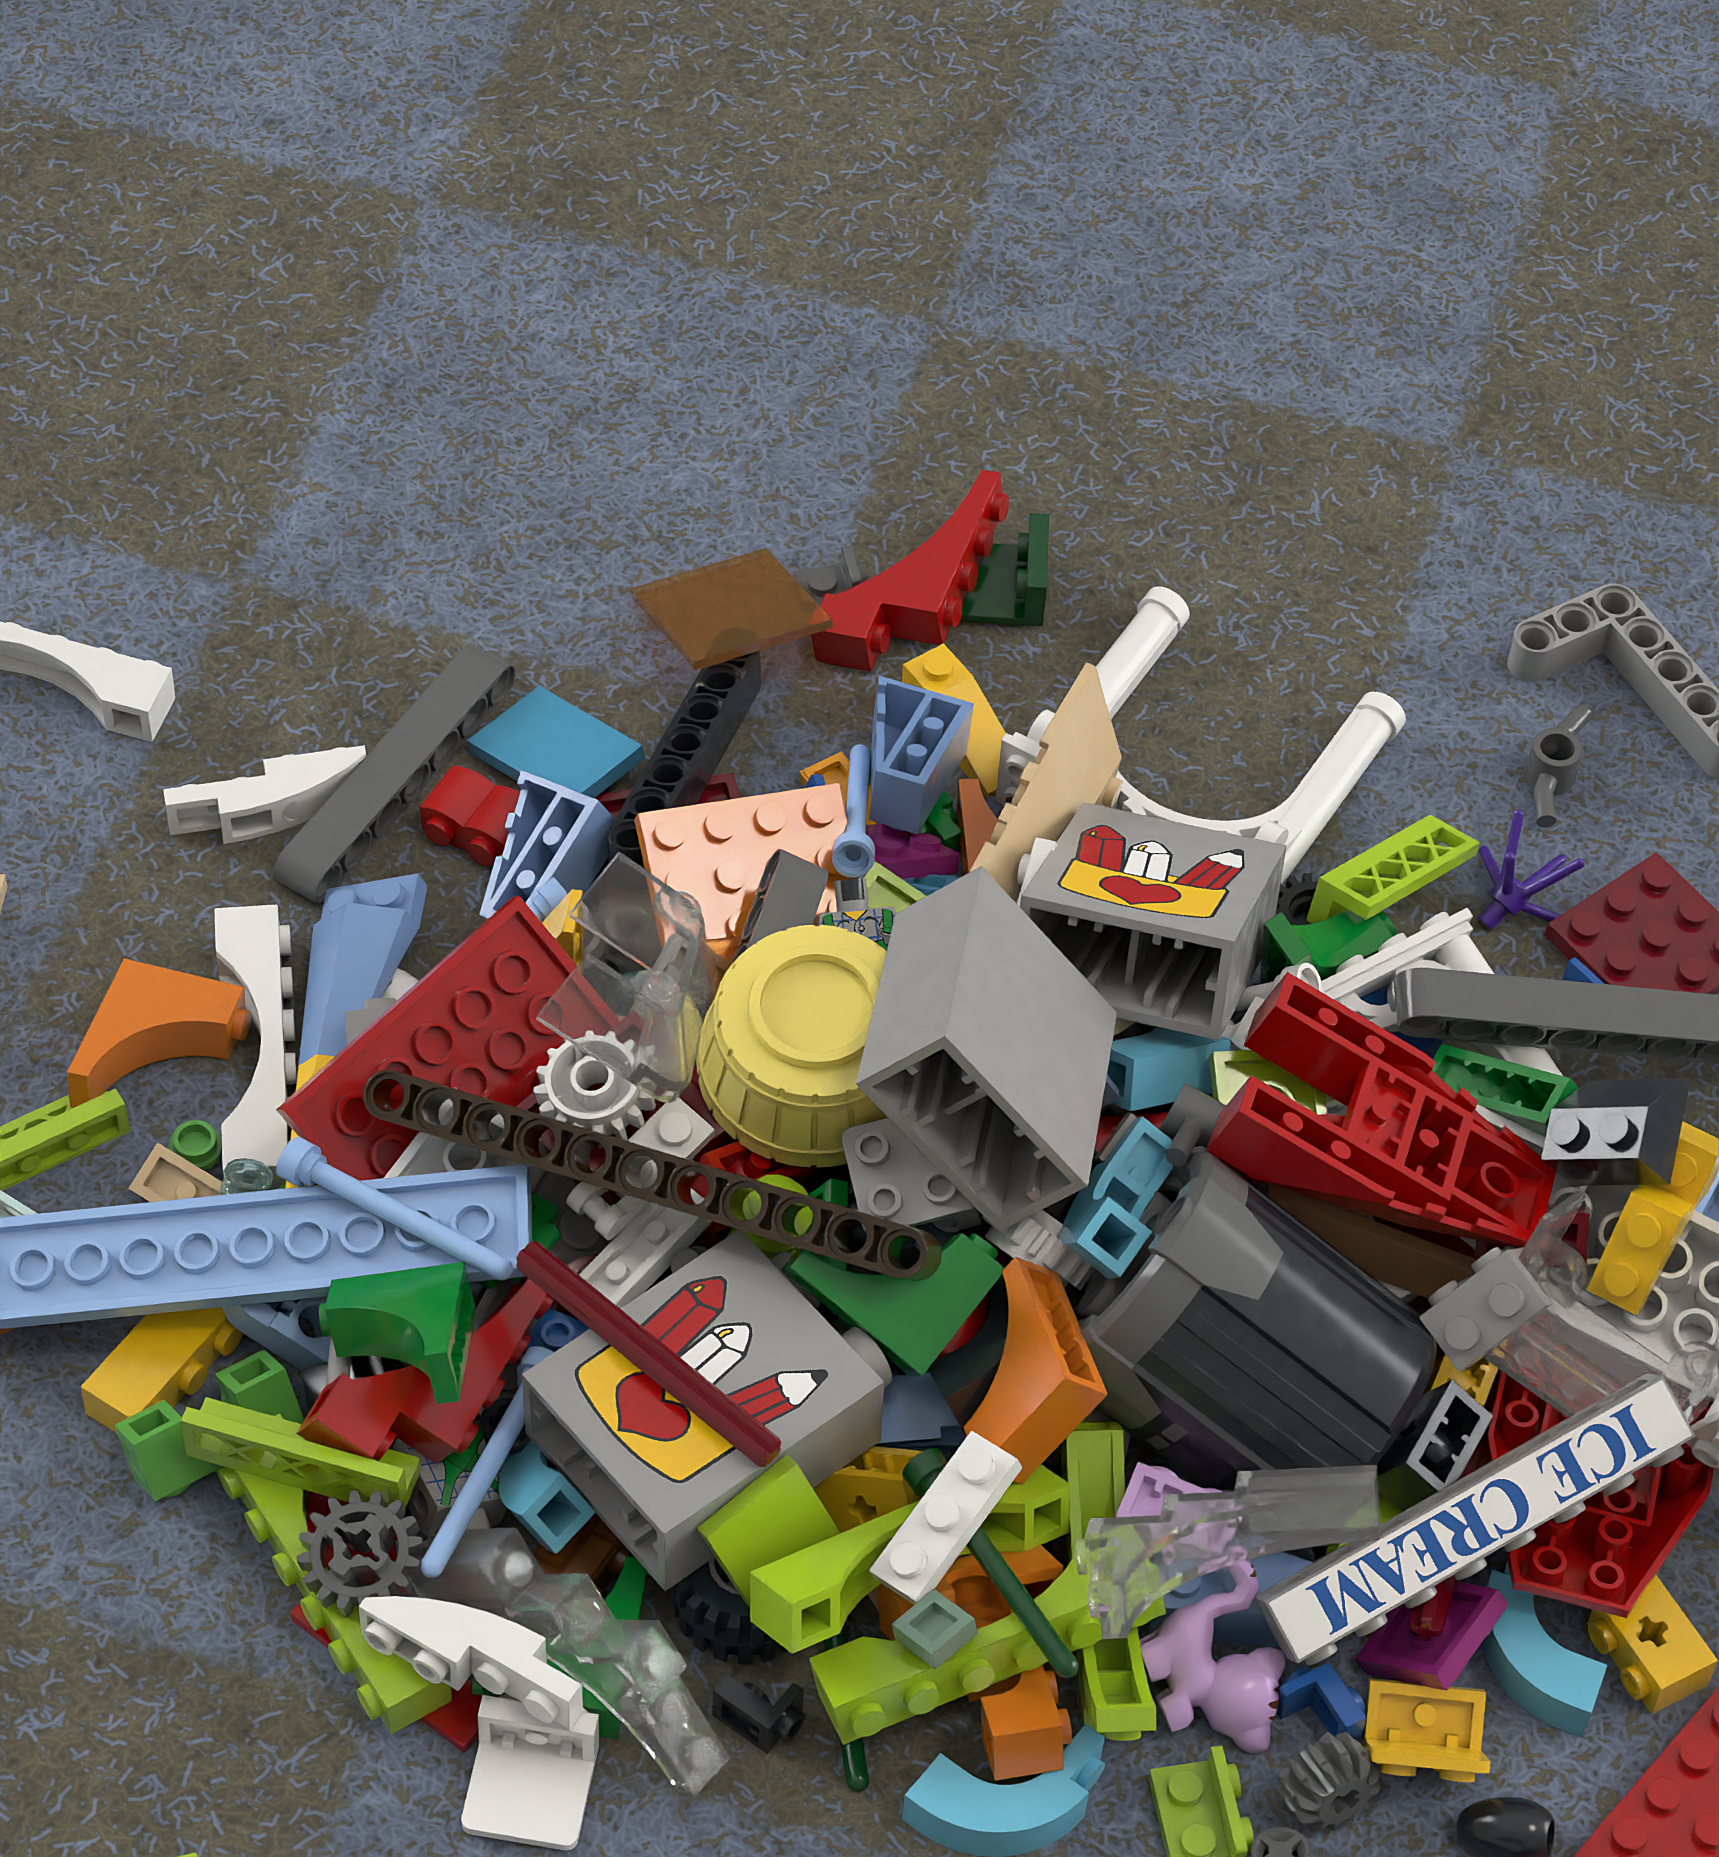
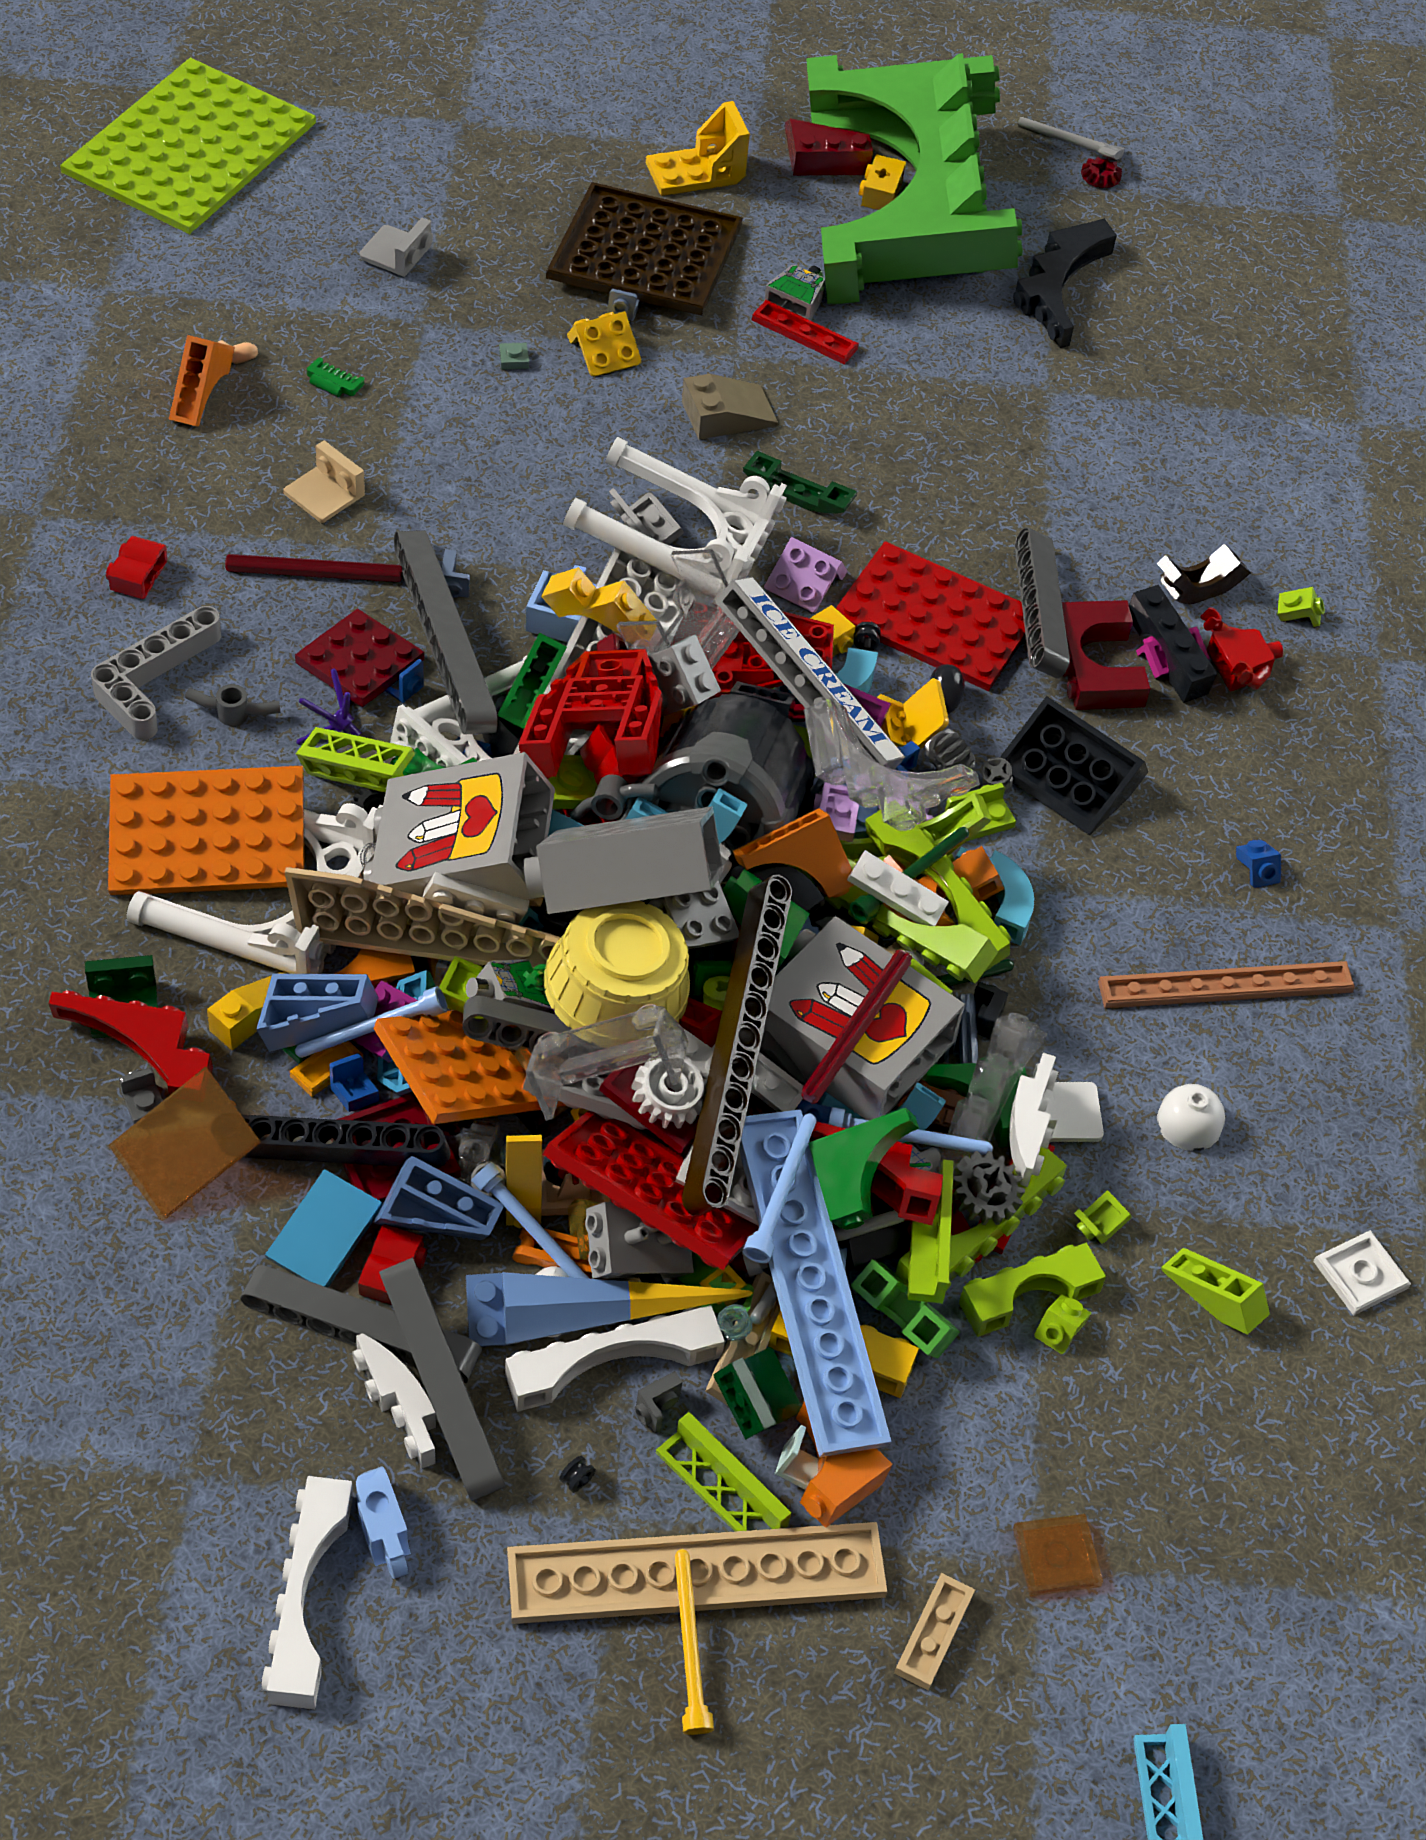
camera: 105 degrees left, 0 degrees up
(88, 975) = (577, 1474): none -> black bush
(91, 750) = (382, 1521): none -> light blue piece
(123, 1171) = (757, 1392): none -> dark green bracket
(135, 1663) = (1062, 1323): none -> lime bracket
(153, 1018) = (609, 1427): orange arch -> none
(166, 1077) = (659, 1394): none -> dark grey bracket
(197, 1143) = (695, 1378): bright green plate -> none
(208, 1688) = (1068, 1272): none -> lime arch
(263, 821) = (442, 1379): none -> dark grey beam
(299, 1767) = (1102, 1218): none -> lime bracket
(710, 1668) = (968, 1030): none -> sand blue axle
(934, 1628) = (960, 893): sand green plate -> none
(1291, 696) = (205, 830): none -> orange plate
(1617, 1132) = (568, 609): black slope -> none
(1656, 1728) = (866, 629): none -> black bush

